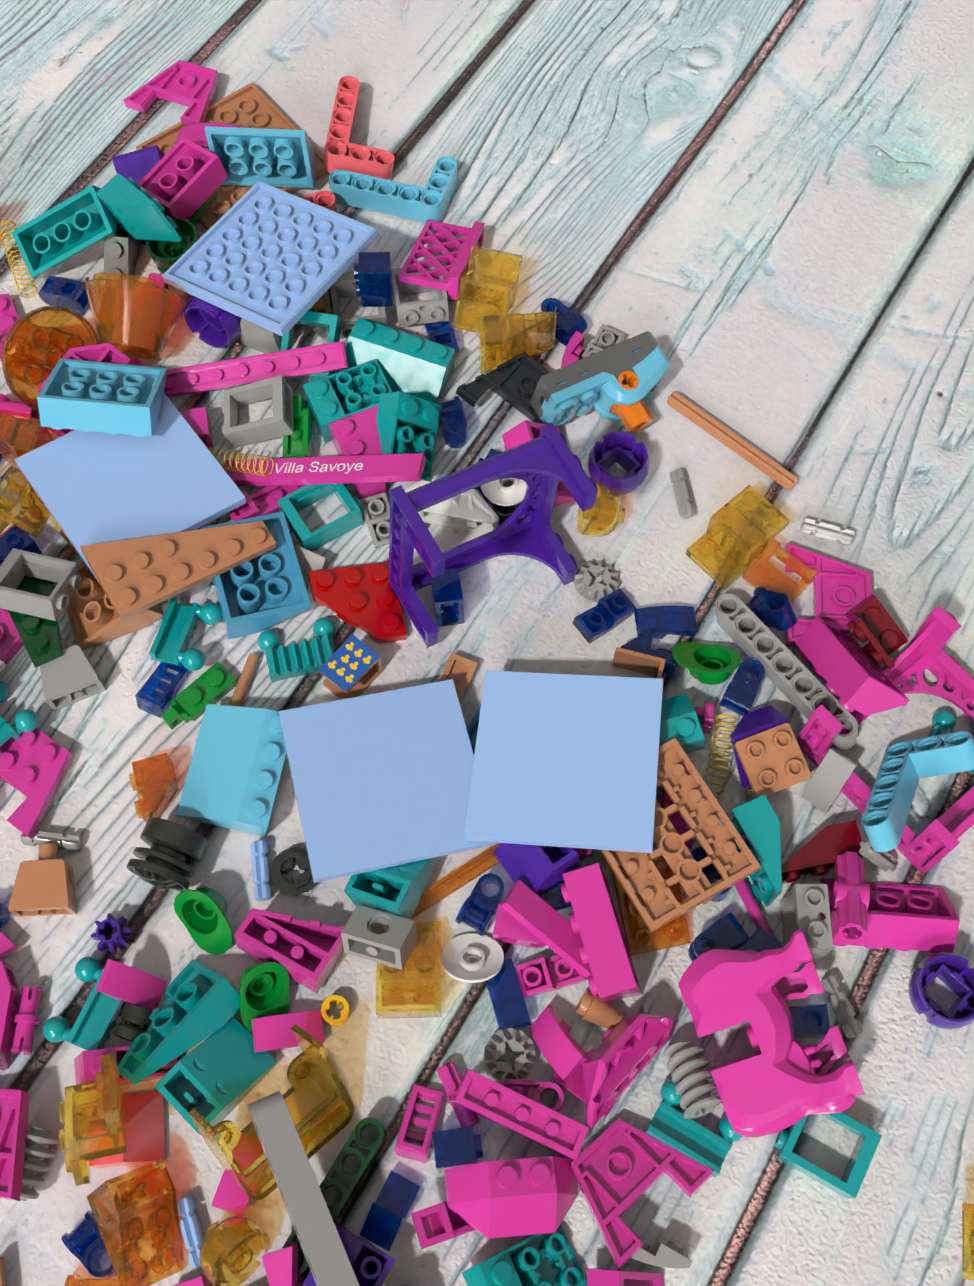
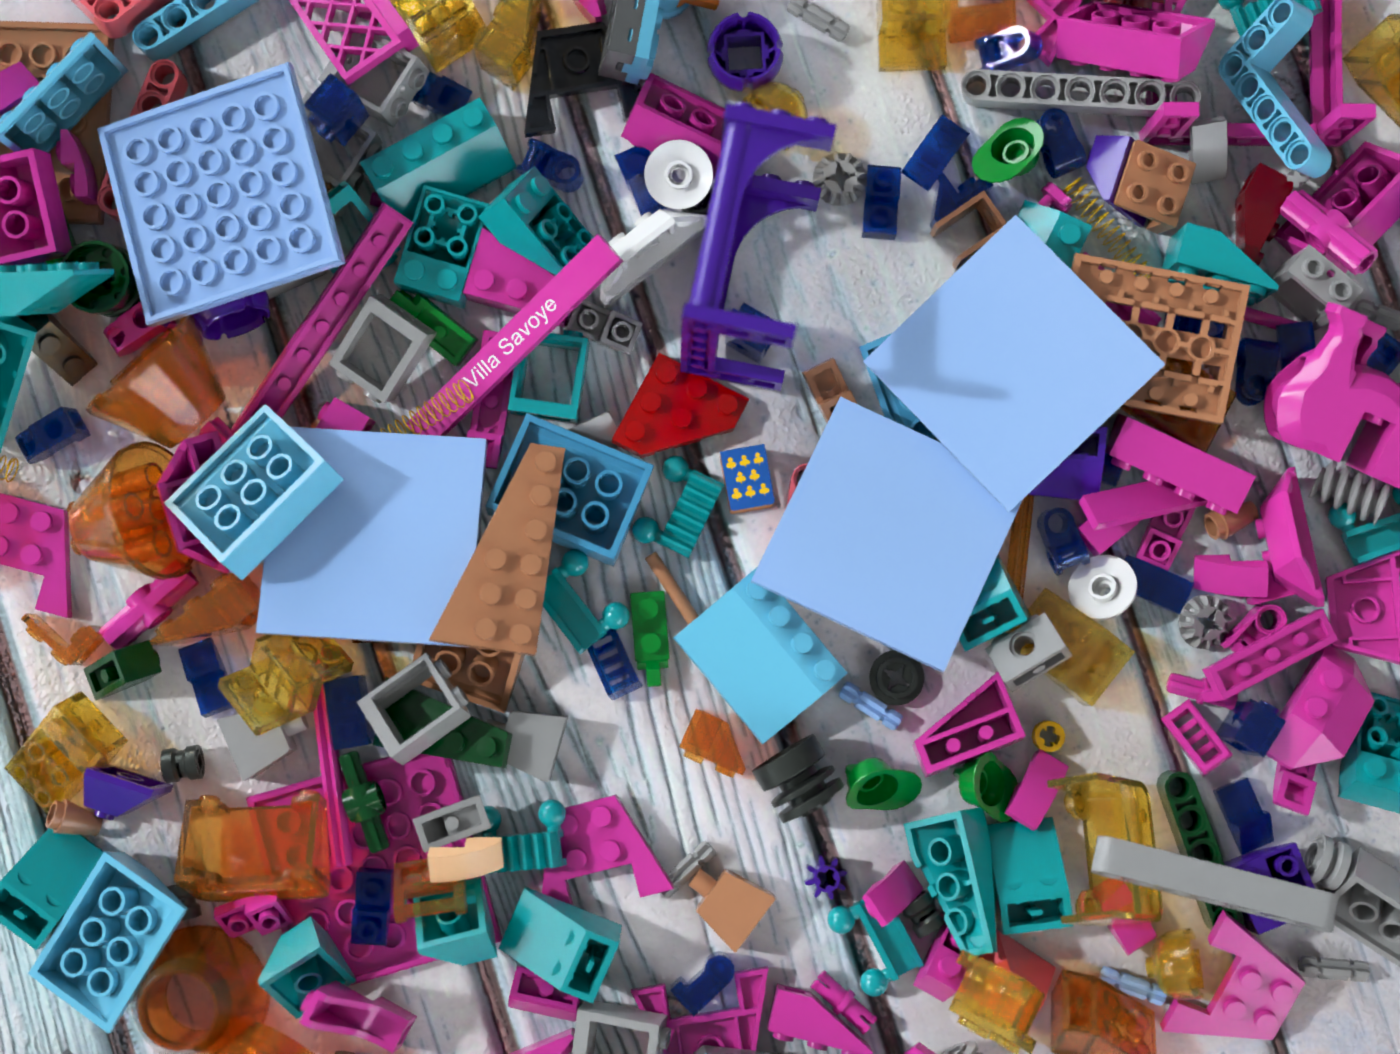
camera: 50 degrees left, 20 degrees up
(236, 190) = (75, 157): none -> dark pink slope

